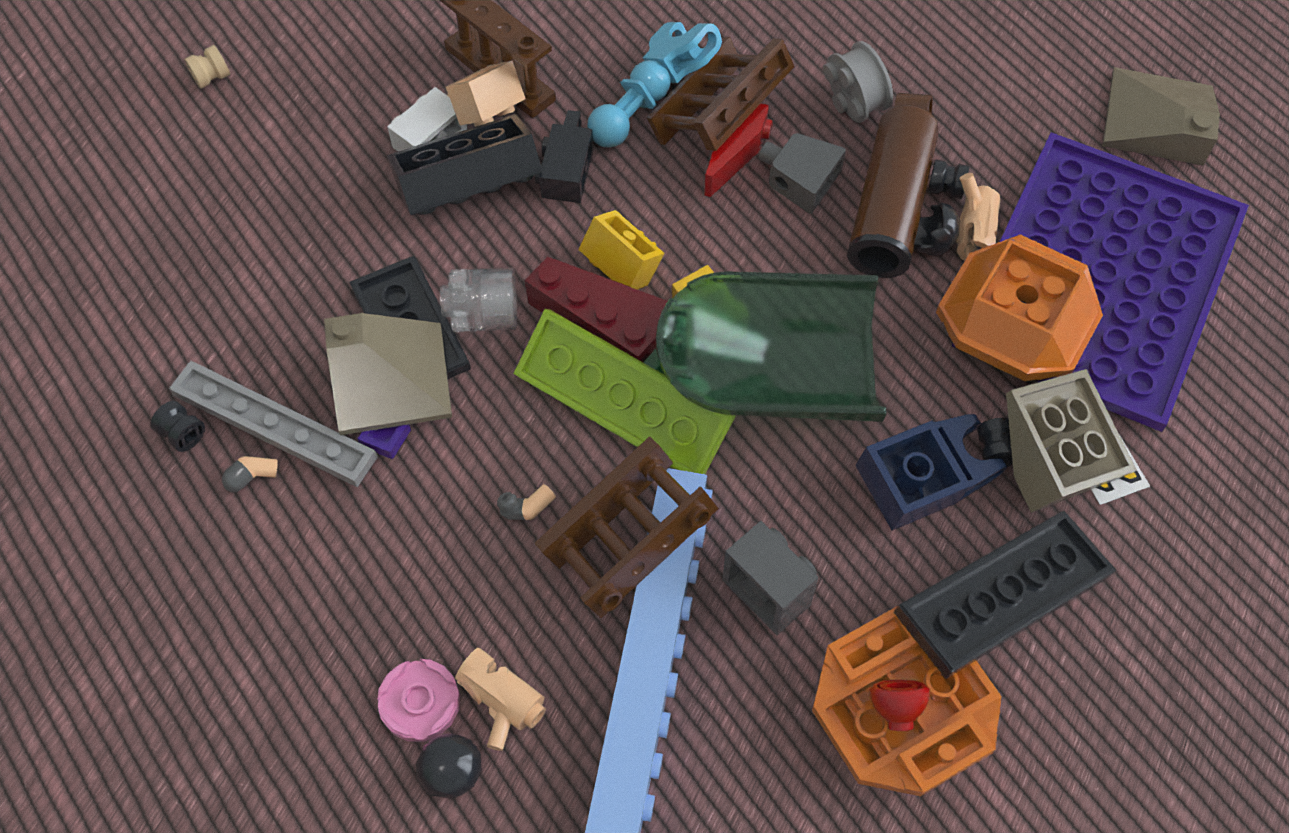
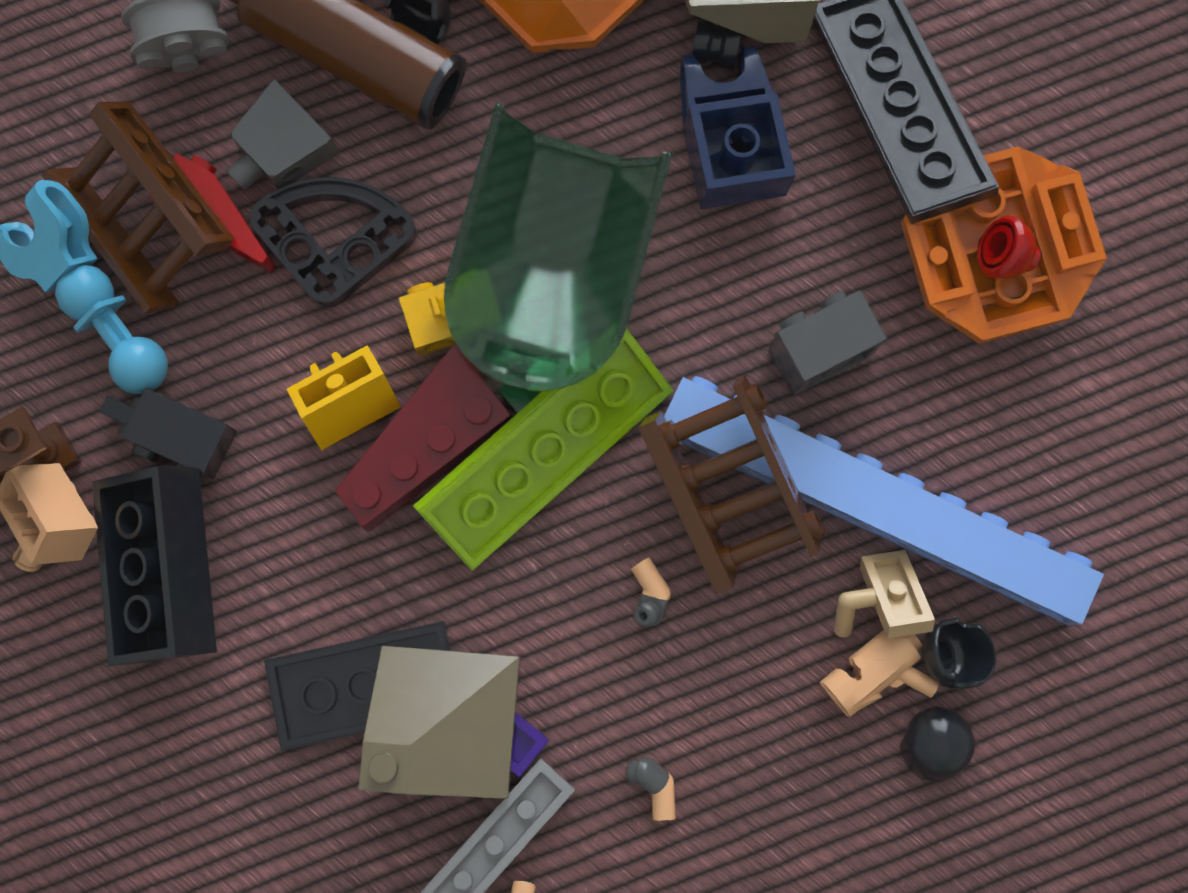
camera: 75 degrees left, 20 degrees up
(372, 545) = (657, 782): none -> arm
(418, 700) = (854, 763): bright pink tile -> none
(424, 121) = (61, 605): white brick -> none
(480, 299) = (367, 587): clear gear -> none
(529, 757) = (959, 654): none -> black hair
(565, 687) = (893, 592): none -> tan plate
(724, 228) = (337, 262): none -> black beam

